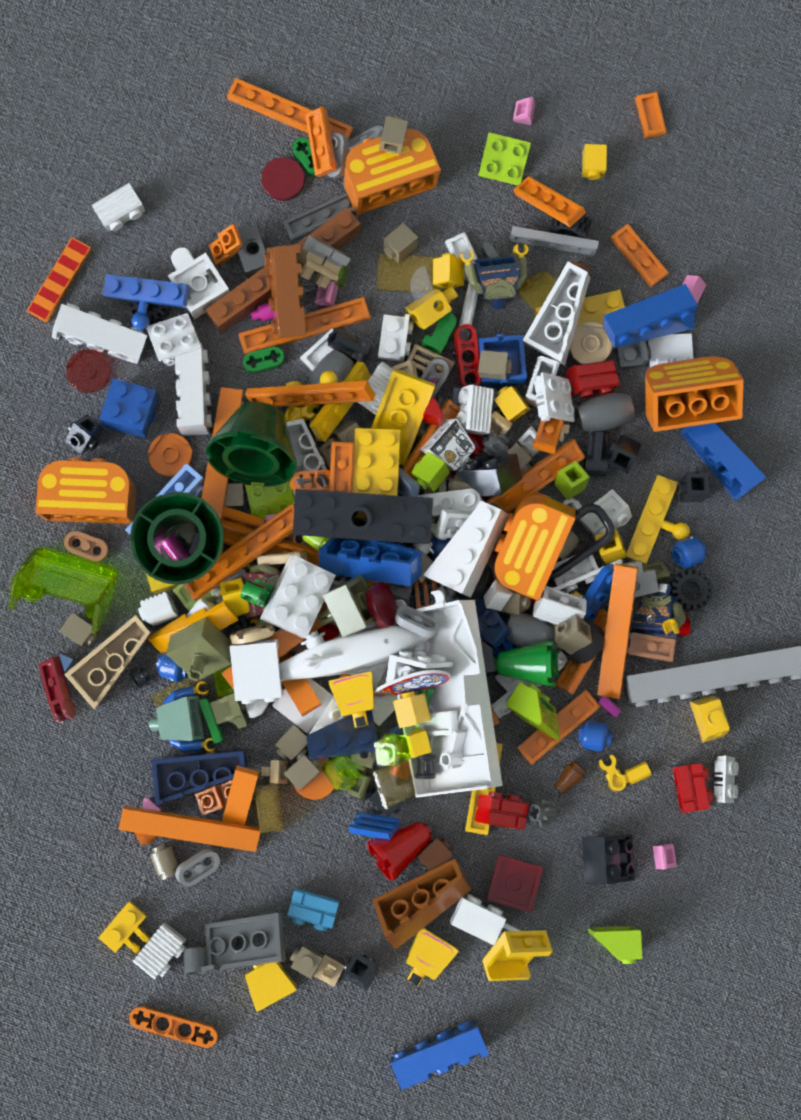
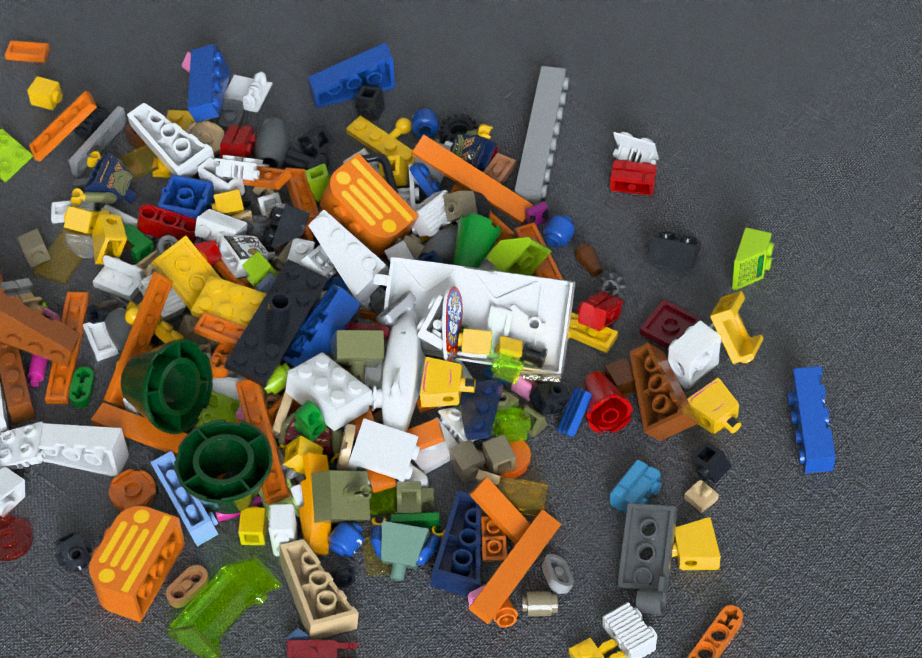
camera: 65 degrees left, 30 degrees down
(78, 630) = (270, 614): dark tan brick -> none
(129, 408) = (67, 505): blue brick -> none
(306, 960) = (688, 505): dark tan brick -> none
(494, 365) = (188, 195): dark tan brick -> none
(632, 775) = (606, 228): yellow bar -> none
(639, 255) = (145, 91): orange tile -> none
(664, 856) = (687, 216): bright pink slope -> none
(693, 393) = (288, 72): orange brick -> none
(710, 718) = (577, 145): yellow torso -> none

